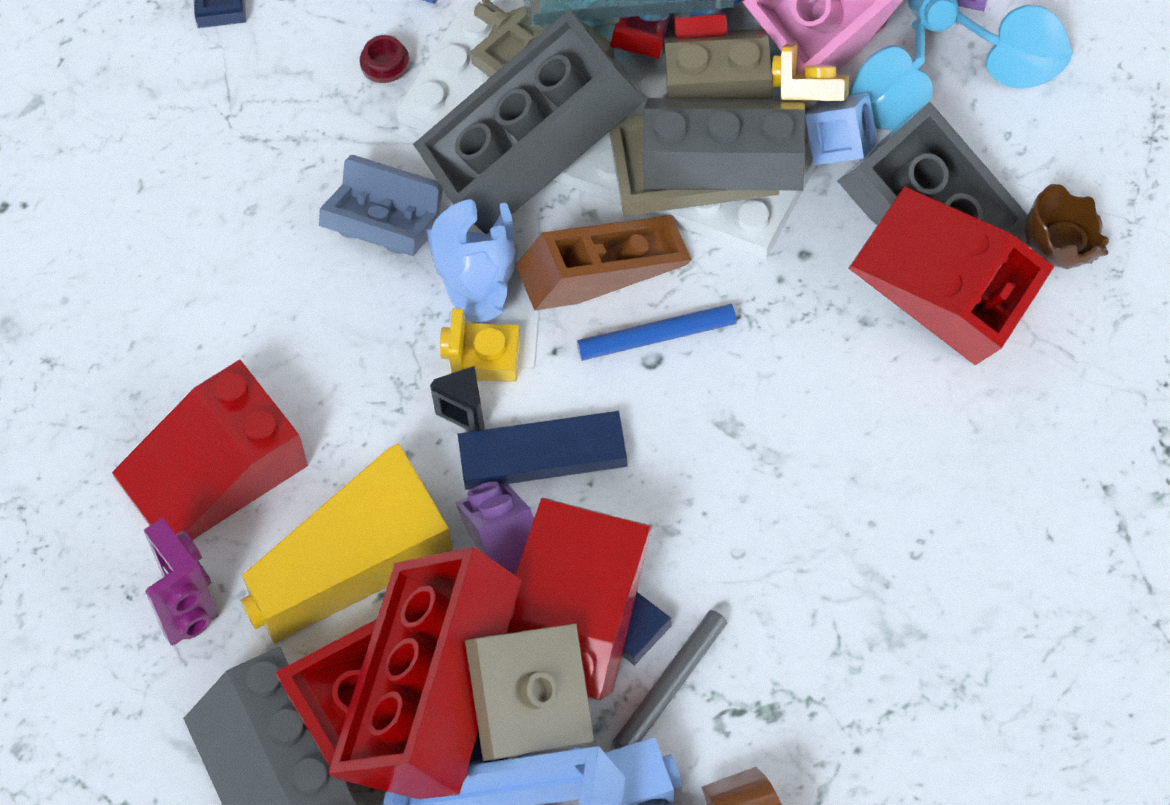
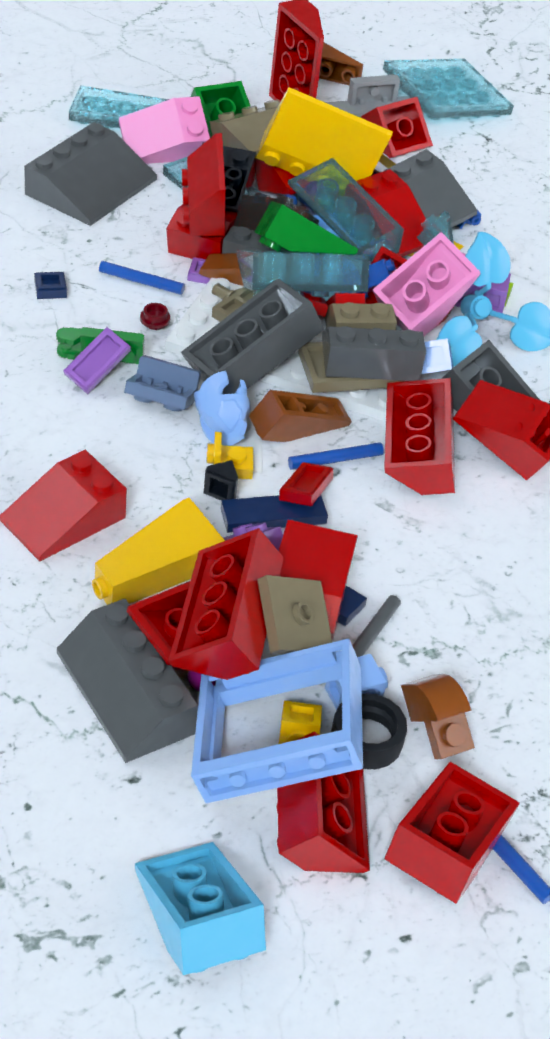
camera: 15 degrees left, 15 degrees down
(182, 595) = (54, 564): magenta bracket -> none
(277, 165) = (97, 360): none -> medium lavender tile
(288, 128) = (75, 340): none -> green hinge
(597, 399) = (306, 484): none -> red tile
(795, 295) = (420, 435): none -> red slope
(816, 84) = (430, 330): bracket -> none

